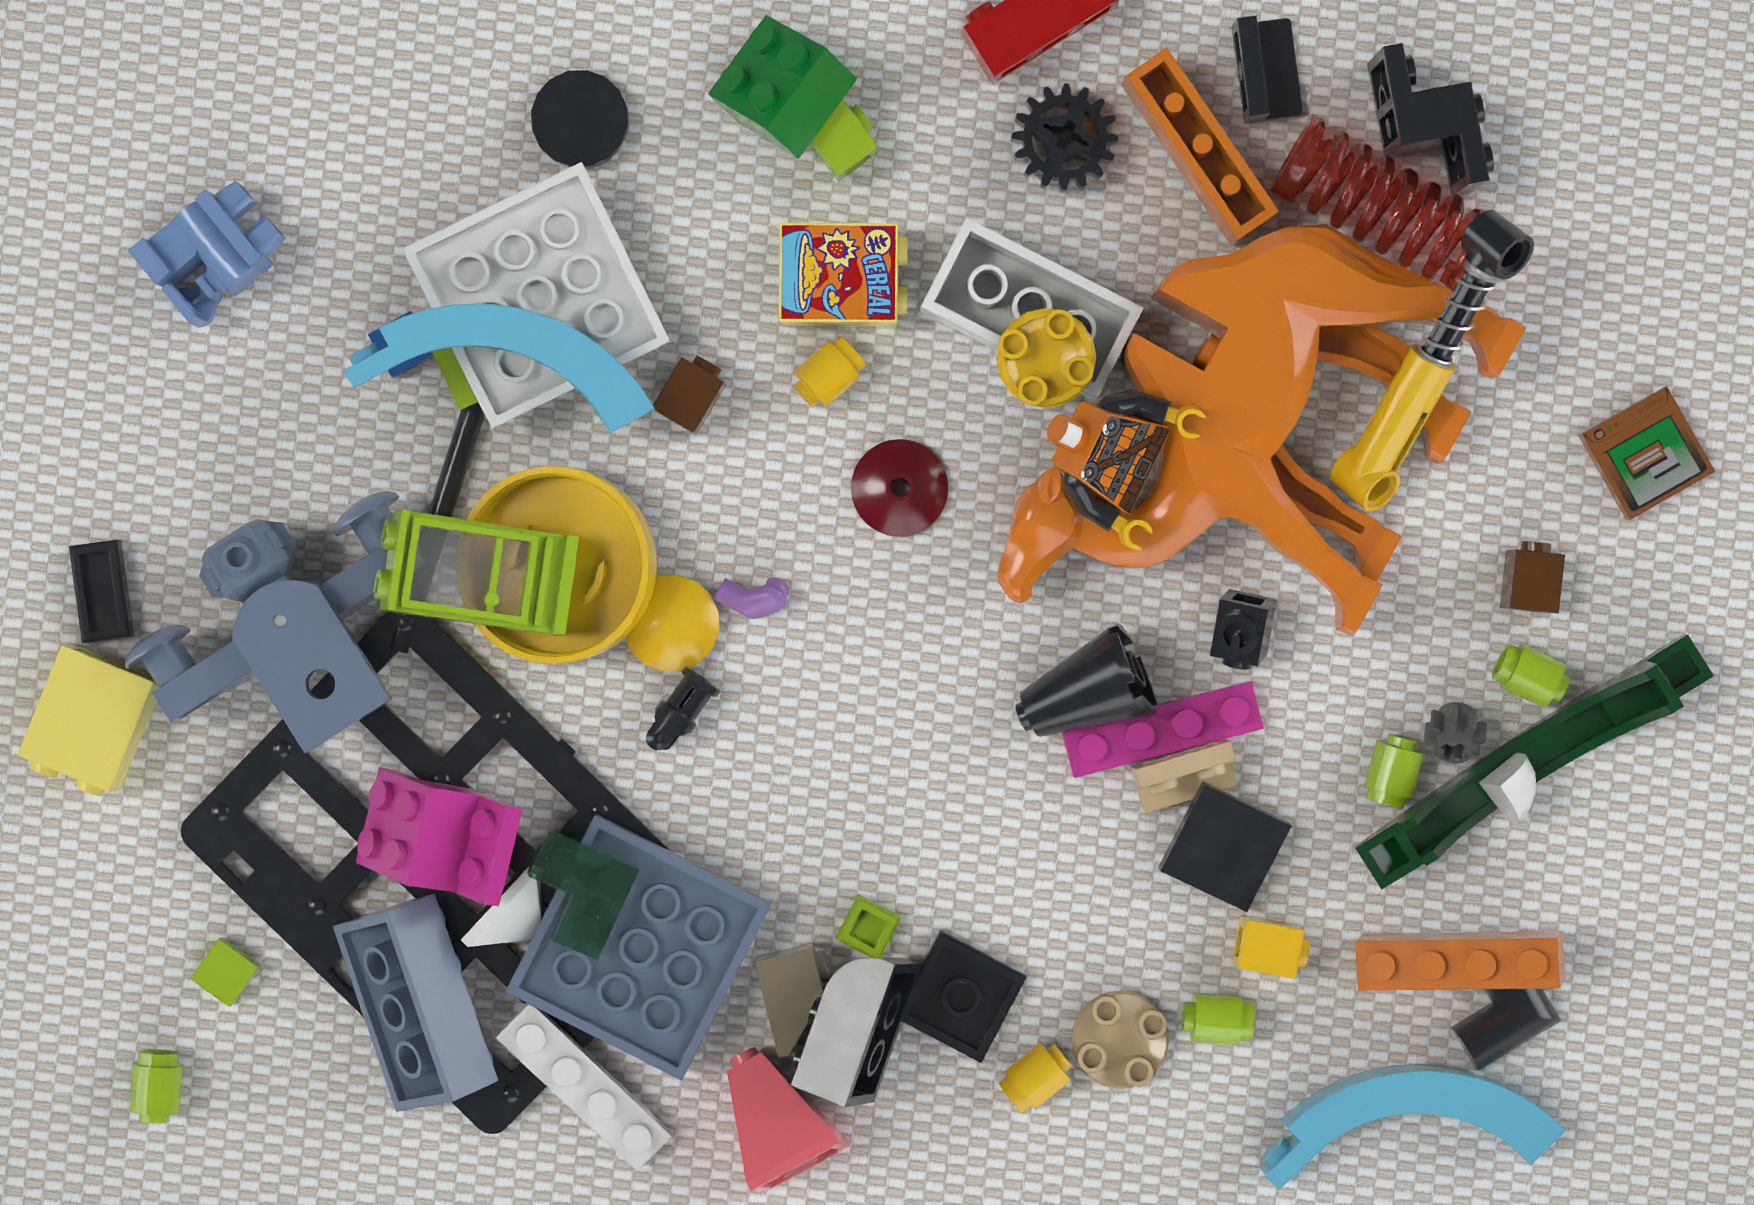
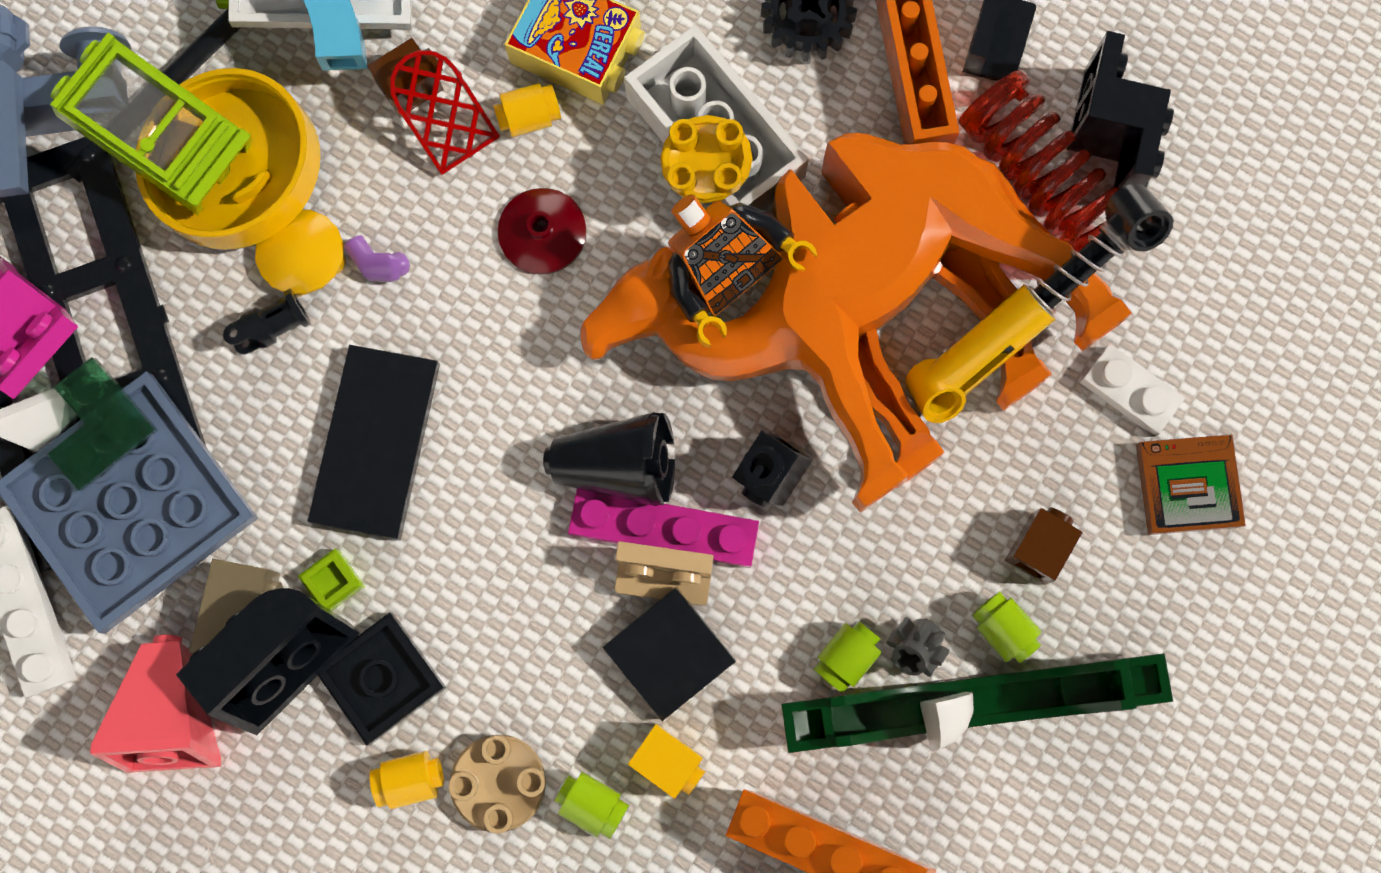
camera: 30 degrees right, 10 degrees down
(733, 409) = (460, 82): none -> red window
(841, 776) = (374, 442): none -> black tile
(1553, 384) = (1132, 390): none -> white plate

